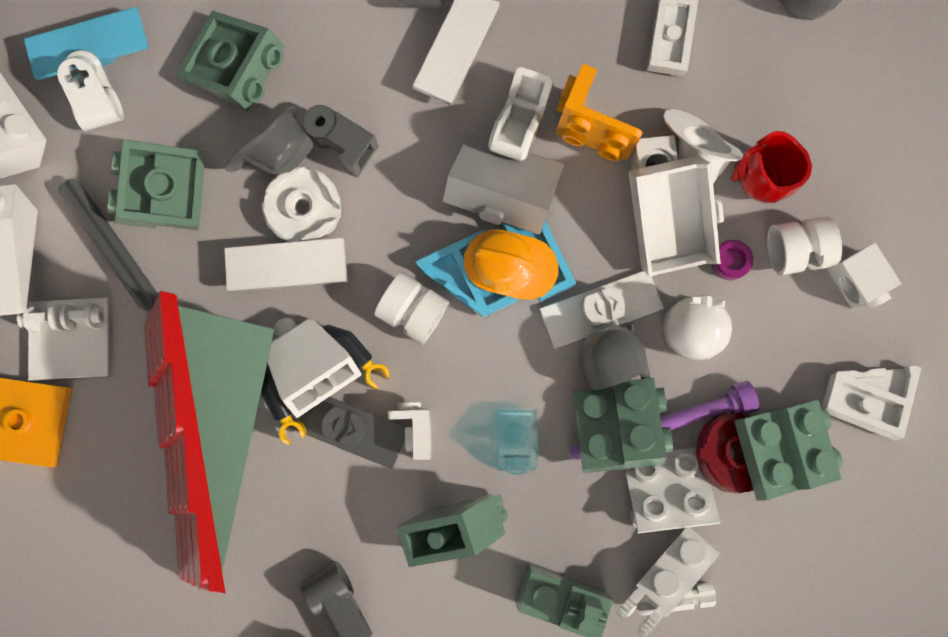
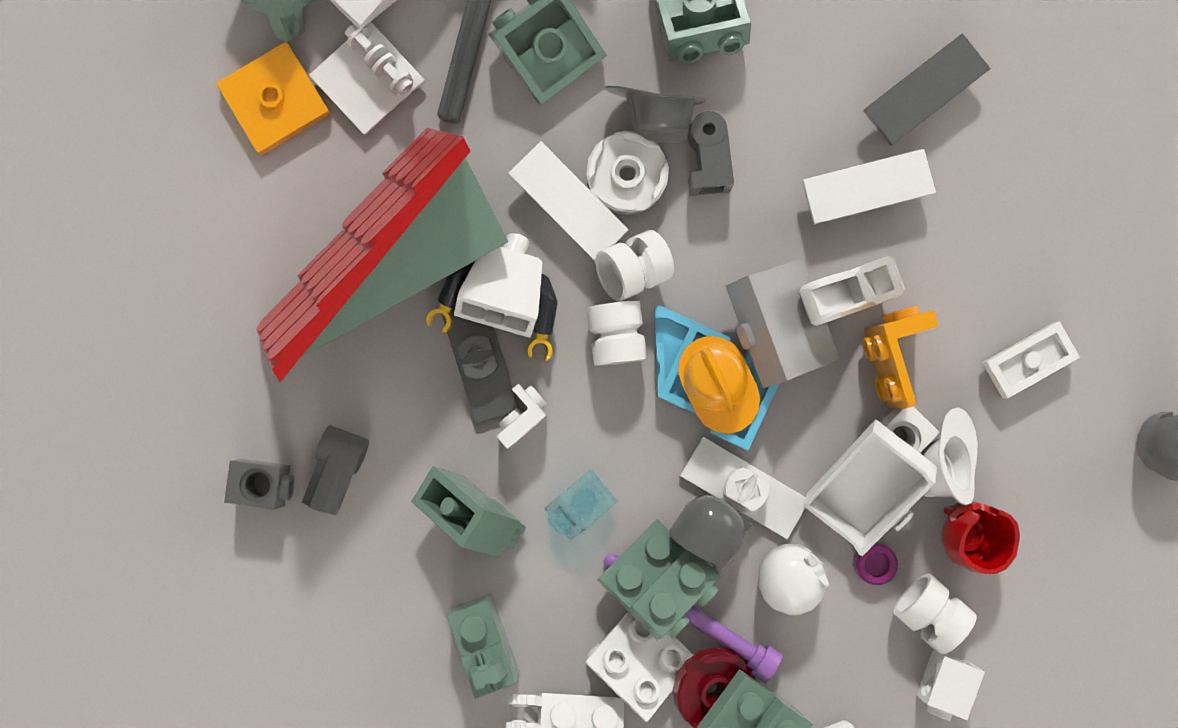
camera: 55 degrees right, 5 degrees up
(372, 254) = (634, 265): none -> white wheel

